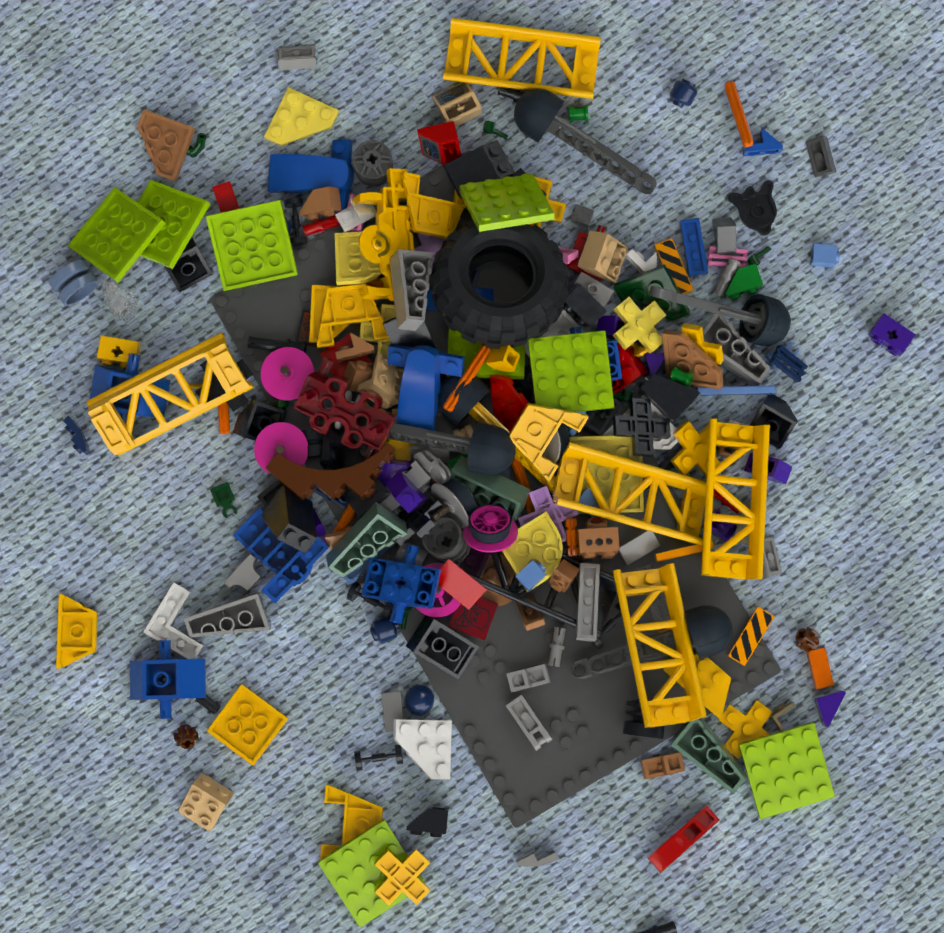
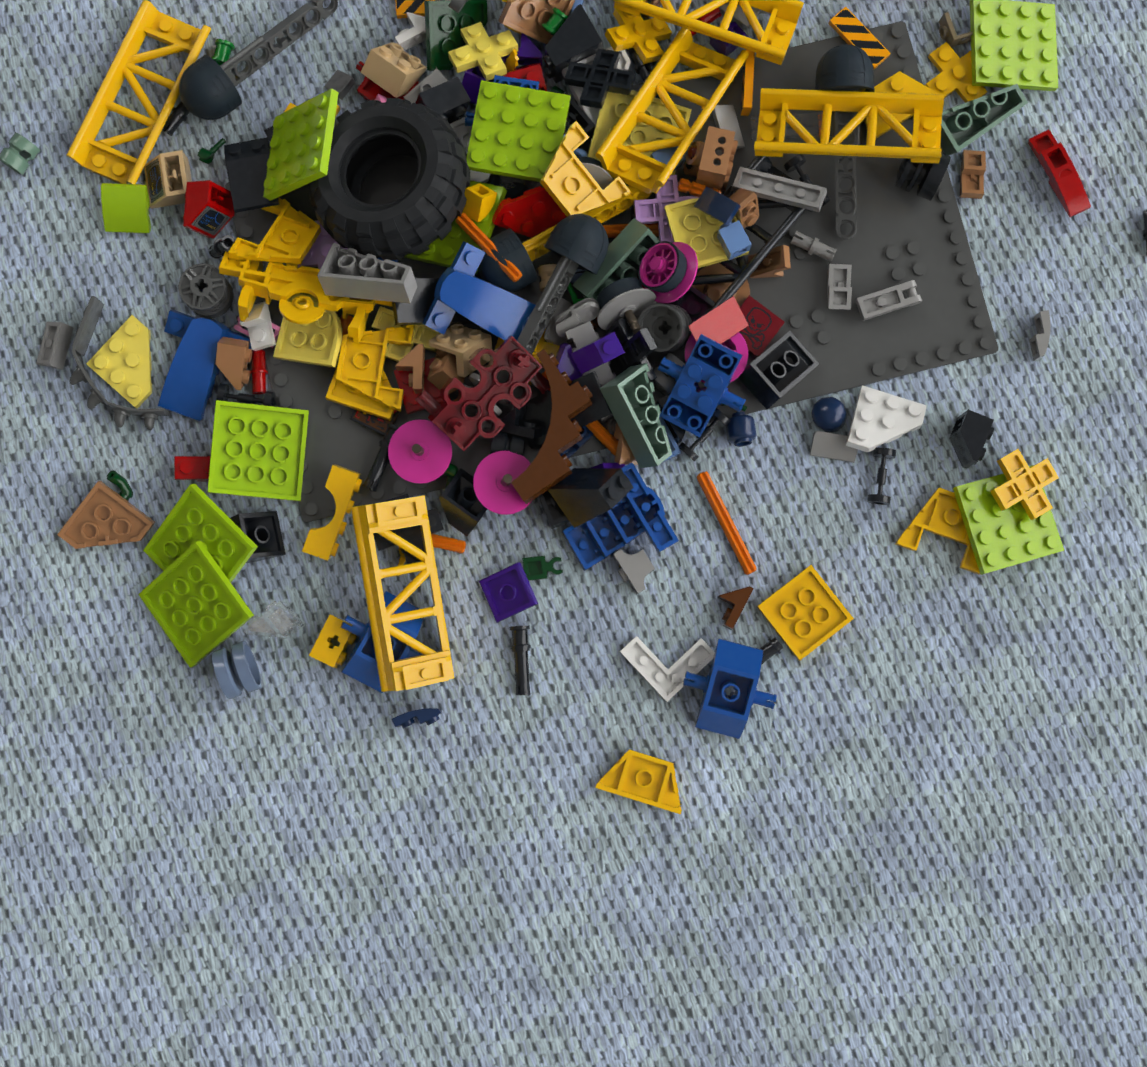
camera: 75 degrees left, 0 degrees up
(154, 502) = (520, 648): none -> black pin
(186, 736) = (799, 685): reddish brown gear -> none
(197, 479) = (508, 592): none -> dark purple tile
(205, 801) = (879, 683): tan bracket -> none
(229, 618) = (679, 596): light grey wedge -> none
(243, 665) = (738, 600): none -> reddish brown slope
(244, 319) = (342, 485): none -> yellow arch
(277, 87) = (79, 347): none -> dark grey piece
(304, 640) = (726, 523): none -> orange axle
(412, 160) = (220, 246): none -> black pin
(423, 78) = (125, 208): none -> lime slope
(553, 553) = (717, 206): none -> dark blue slope

